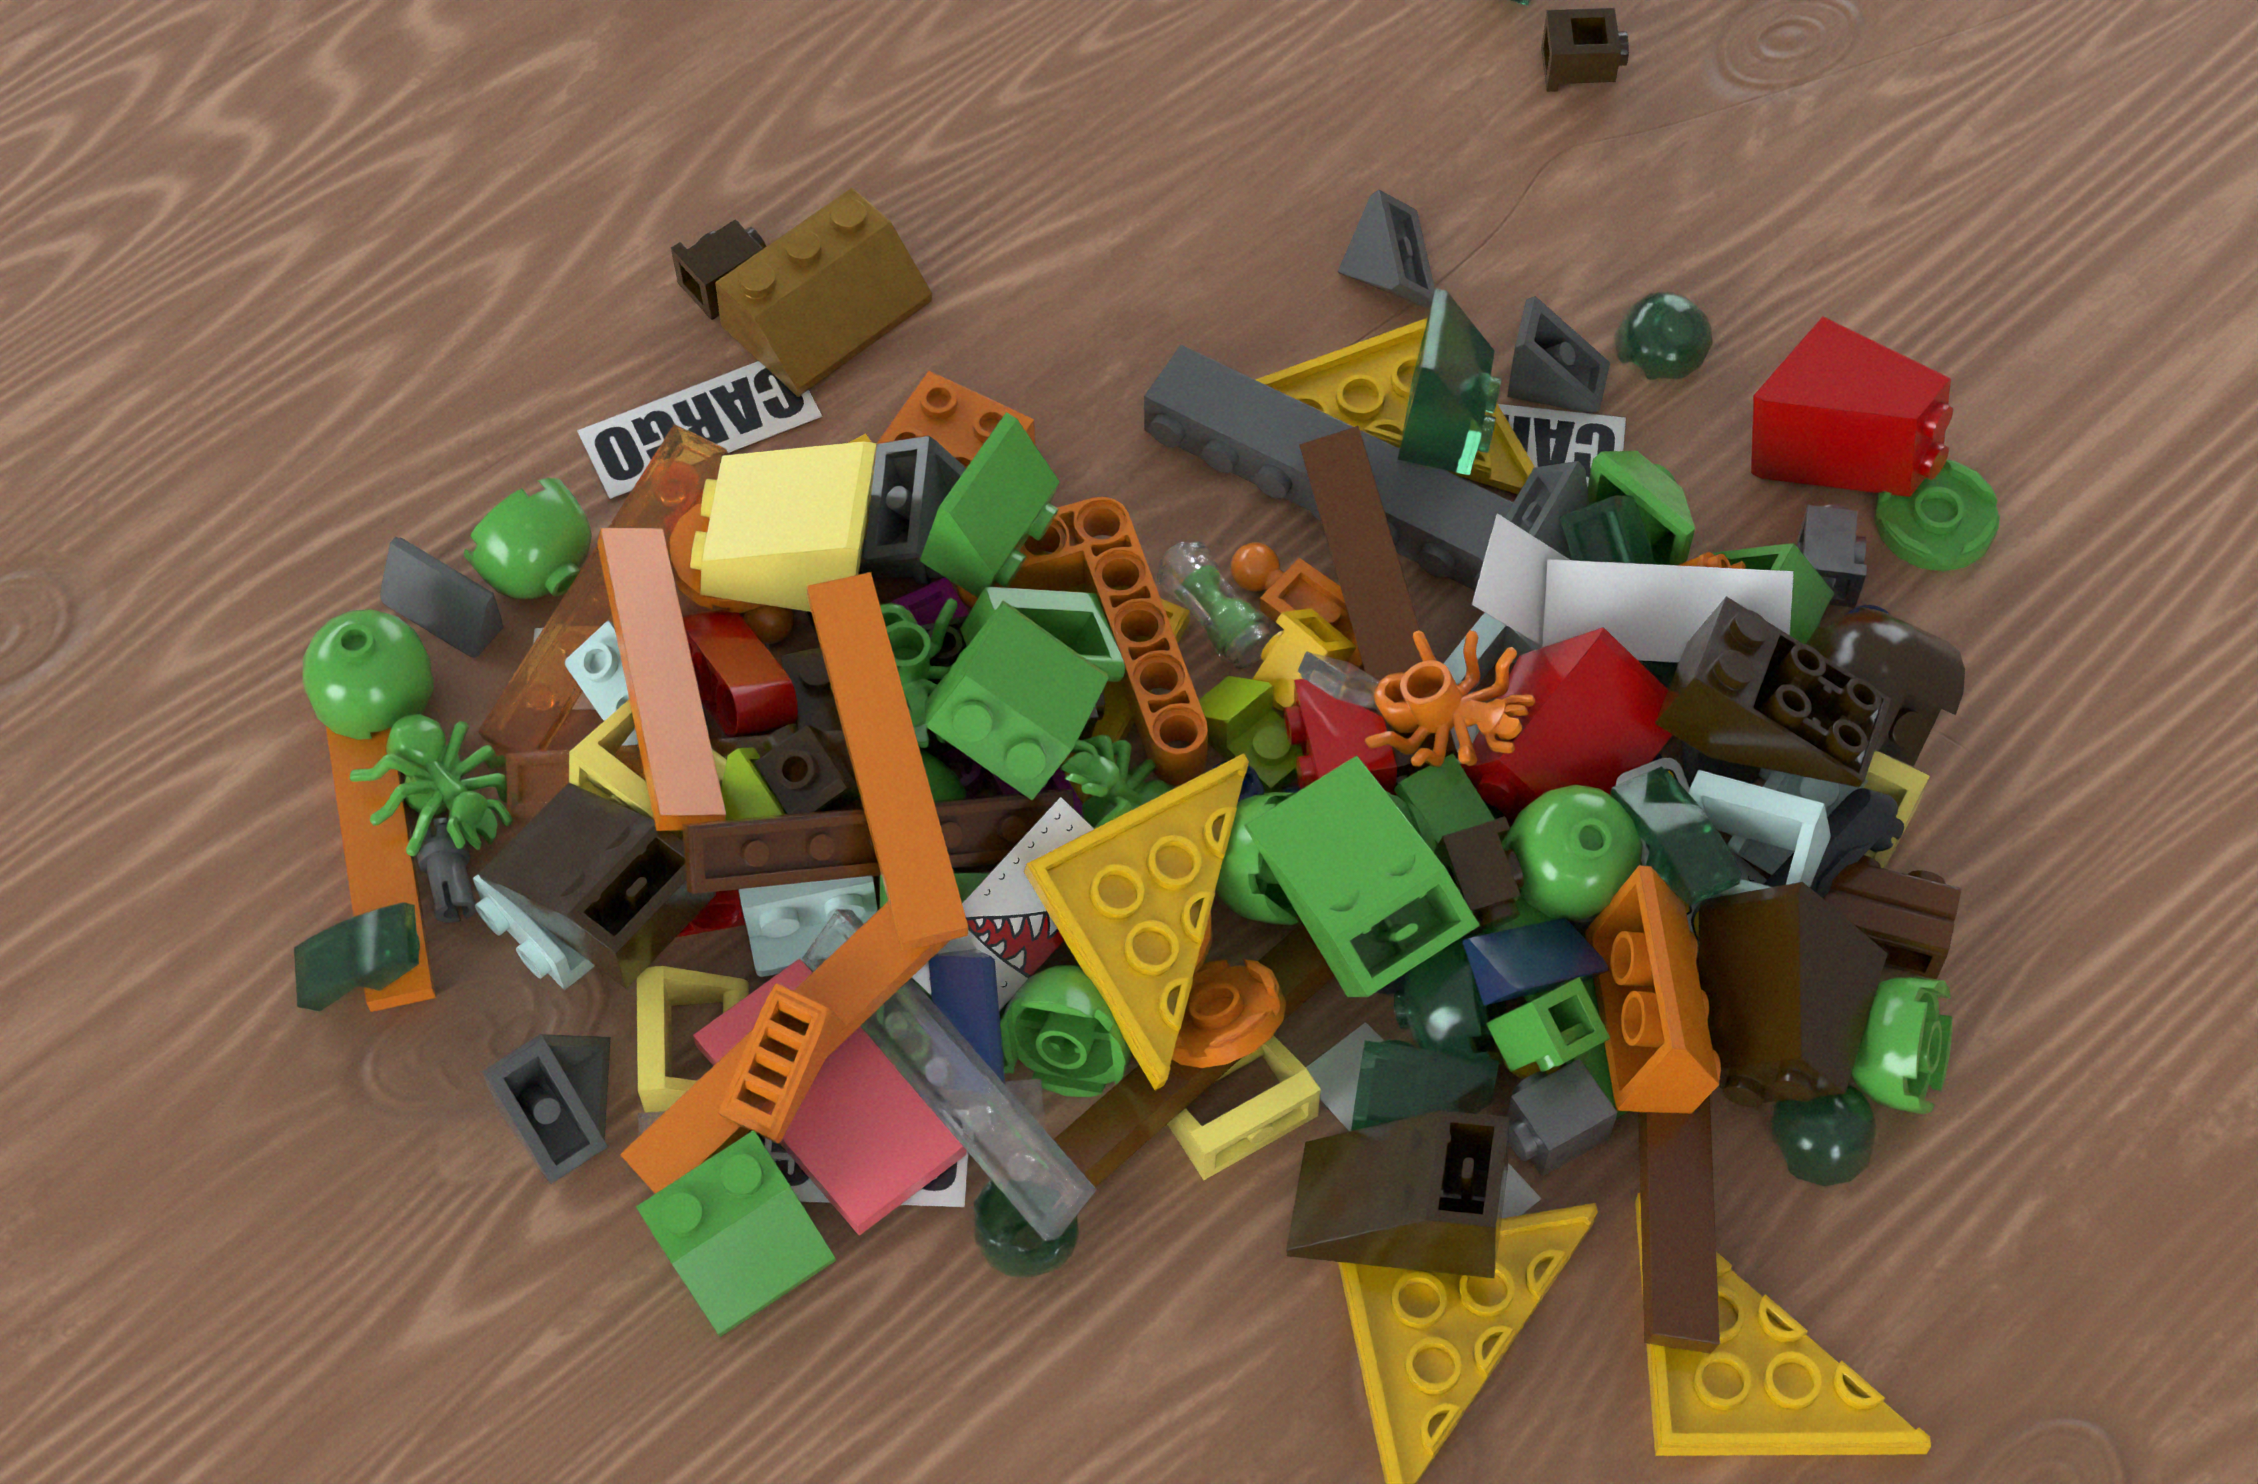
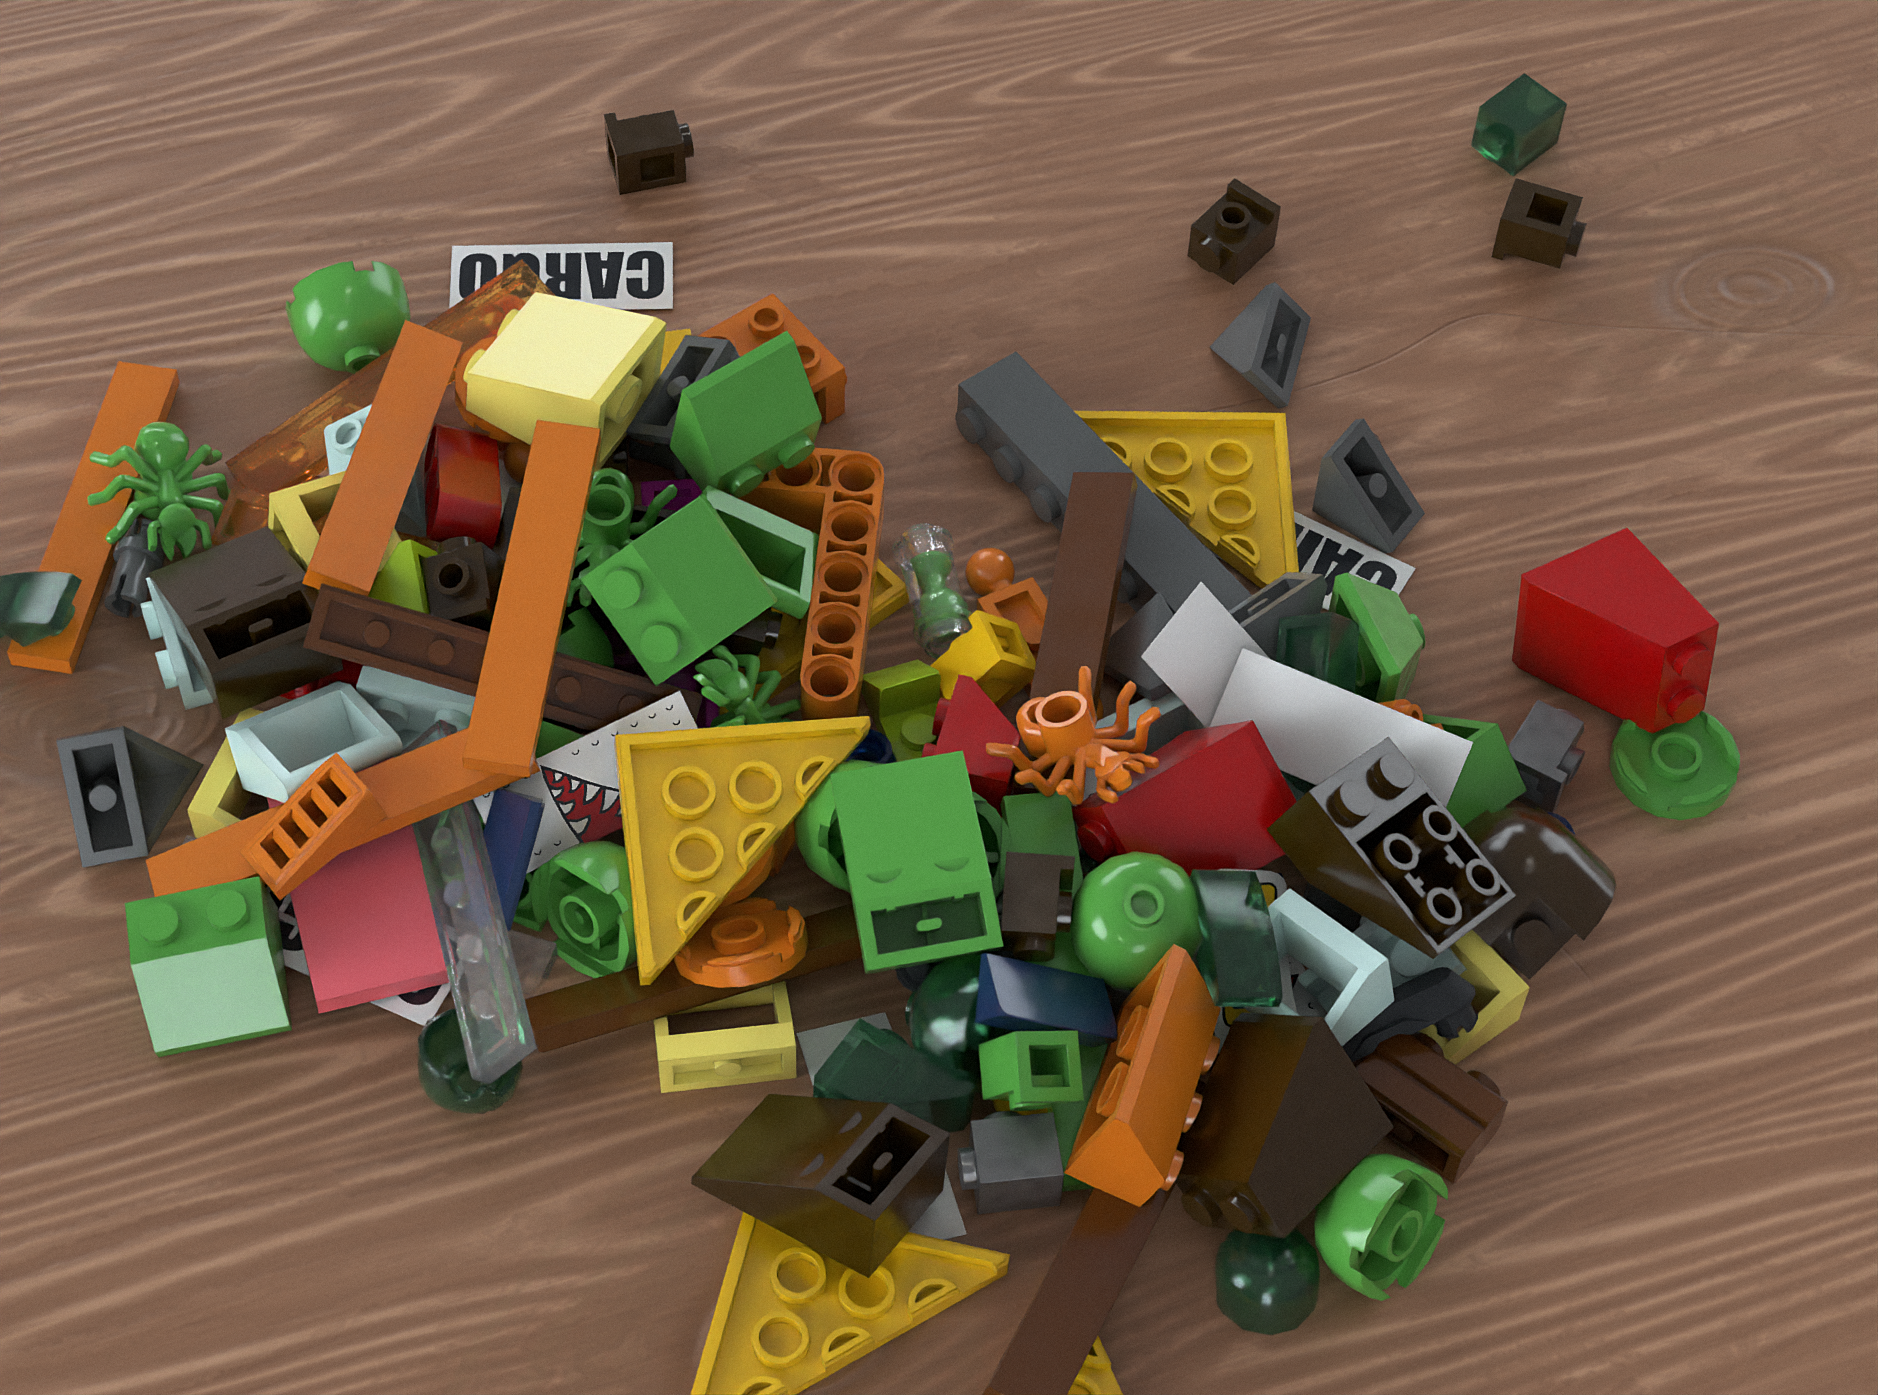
camera: 20 degrees right, 5 degrees down
(366, 673) = (151, 374): bright green cylinder -> none
(439, 598) = (253, 341): dark grey slope -> none
(715, 969) = (289, 742): none -> light aqua tile
(822, 292) = (722, 199): pearl gold slope -> none
(1312, 152) = (1234, 232): none -> dark brown brick
(1339, 679) = (996, 685): clear tile -> none
(1444, 589) = (1130, 643): none -> dark grey slope
(1450, 392) = (1237, 471): clear green slope -> none
(1664, 336) = (1487, 506): clear green hair -> none

